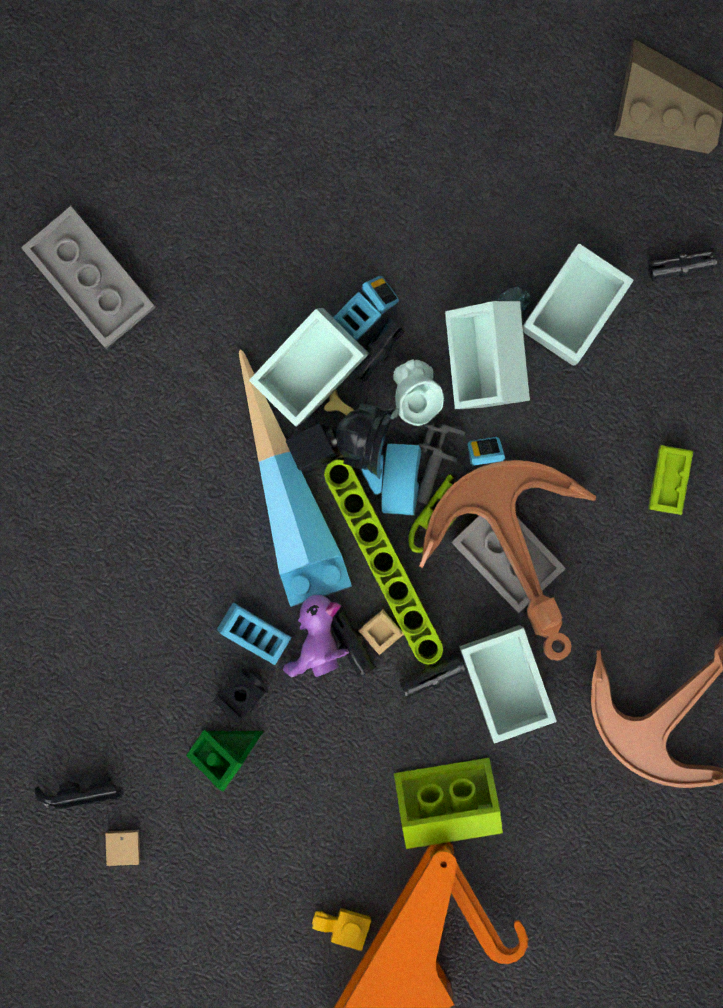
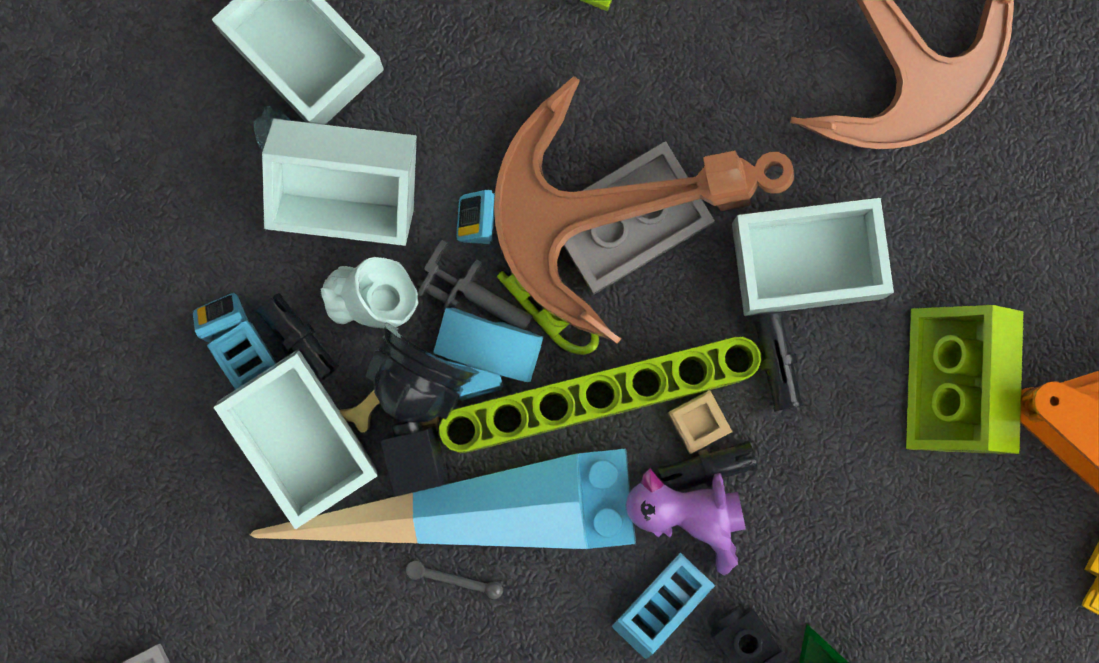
camera: 85 degrees left, 5 degrees down
(241, 465) = (417, 570): none -> dark grey hinge

